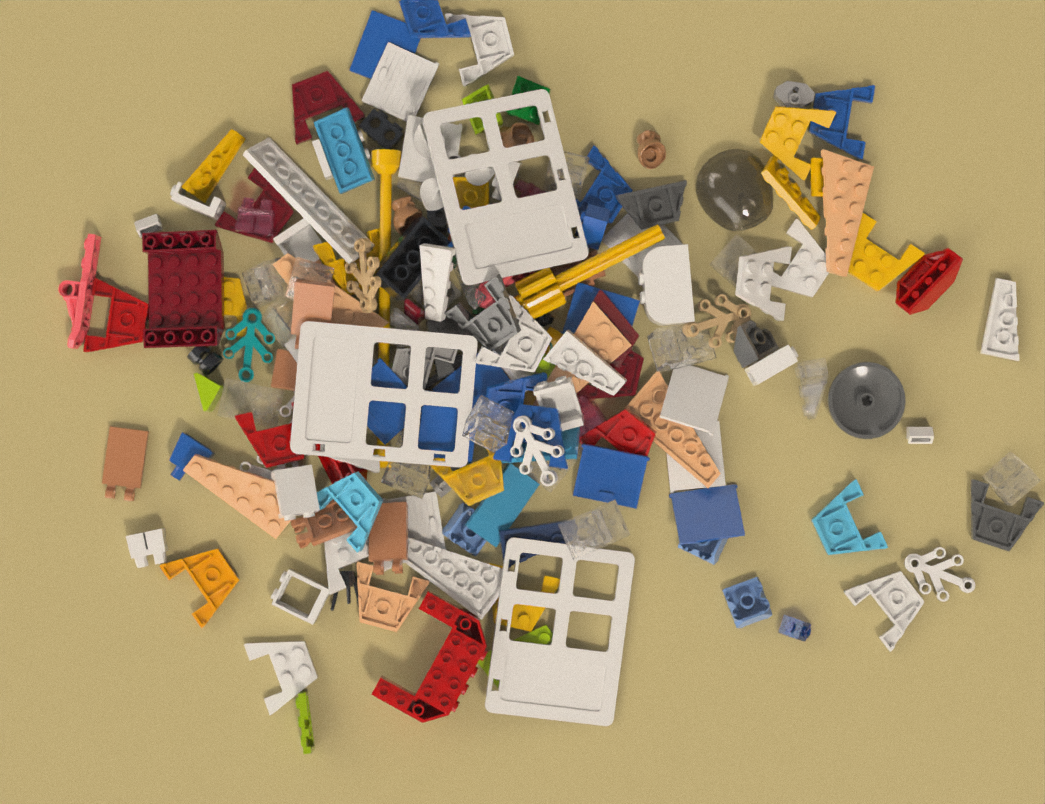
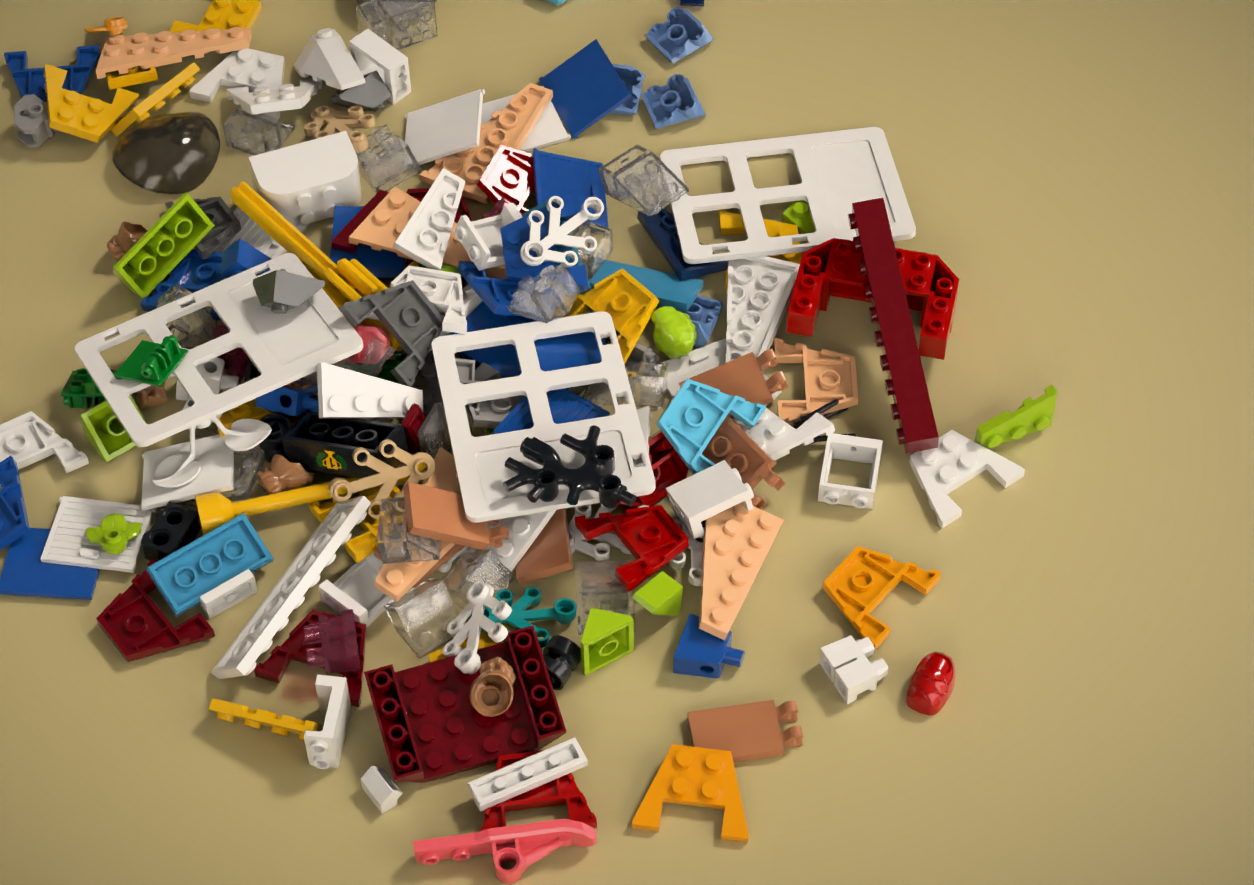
camera: 100 degrees left, 35 degrees down
(96, 422) = (696, 779): none -> light orange wing
(124, 592) = (931, 684): none -> red piece
(126, 317) = (527, 774): none -> white tile
(183, 309) = (493, 689): none -> medium nougat hair
(227, 434) = (661, 595): none -> lime slope
(236, 310) = (479, 596): none -> white plant
(301, 400) = (592, 475): none -> black plant
(392, 661) = (894, 326): none -> dark red brick
(394, 92) = (113, 533): none -> lime plate
(447, 511) = (673, 332): none -> lime hair
(499, 137) = (152, 362): none -> green hinge
(531, 241) = (285, 290): none -> slope
(628, 167) = (163, 246): none -> lime slope
(678, 577) = (672, 102): none -> medium blue slope
(787, 325) = (329, 60): none -> white wedge
(879, 168) = (113, 25): none -> light orange plate

